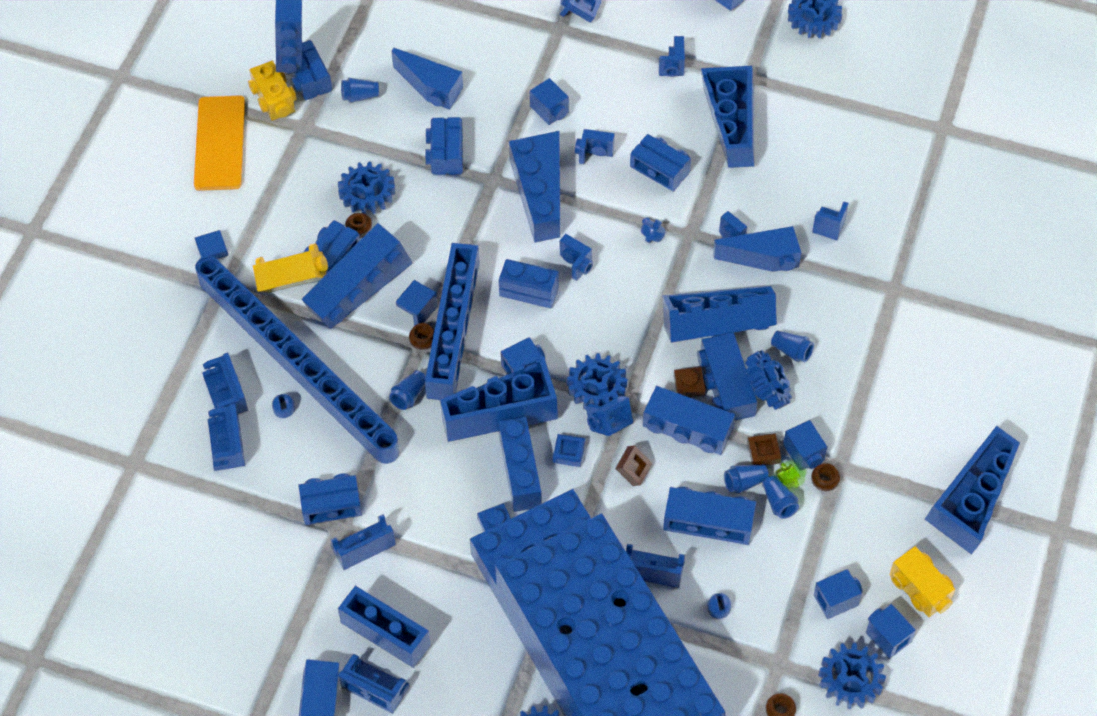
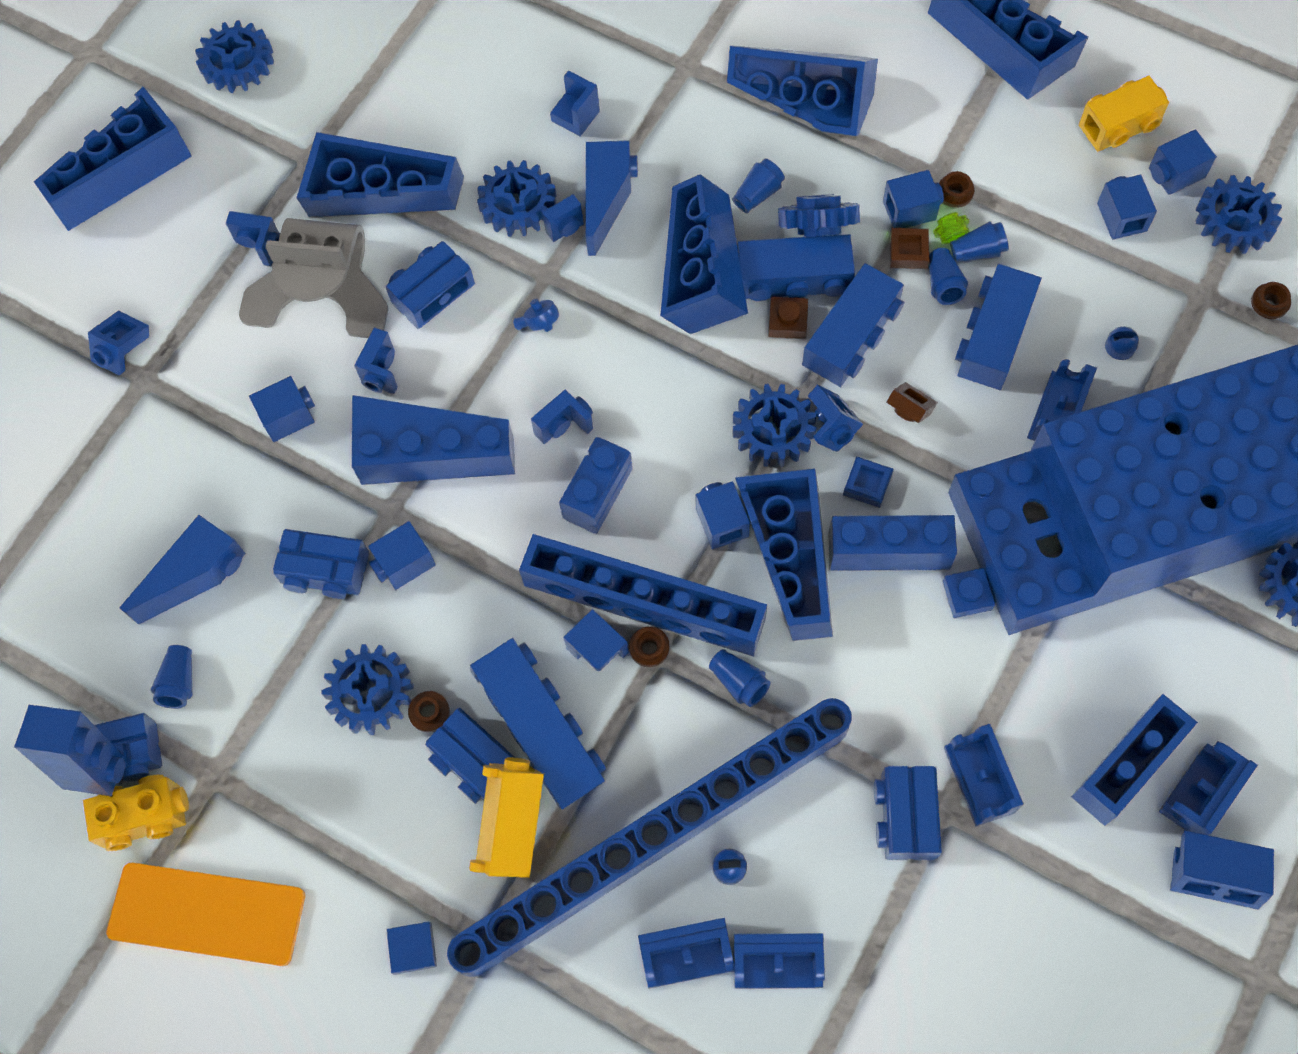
camera: 75 degrees left, 10 degrees up
(458, 187) = (400, 556): none -> blue brick
(660, 92) = (313, 264): none -> light grey piece
(742, 197) = (499, 203): none -> blue gear
(894, 370) = (815, 86): none -> blue wedge

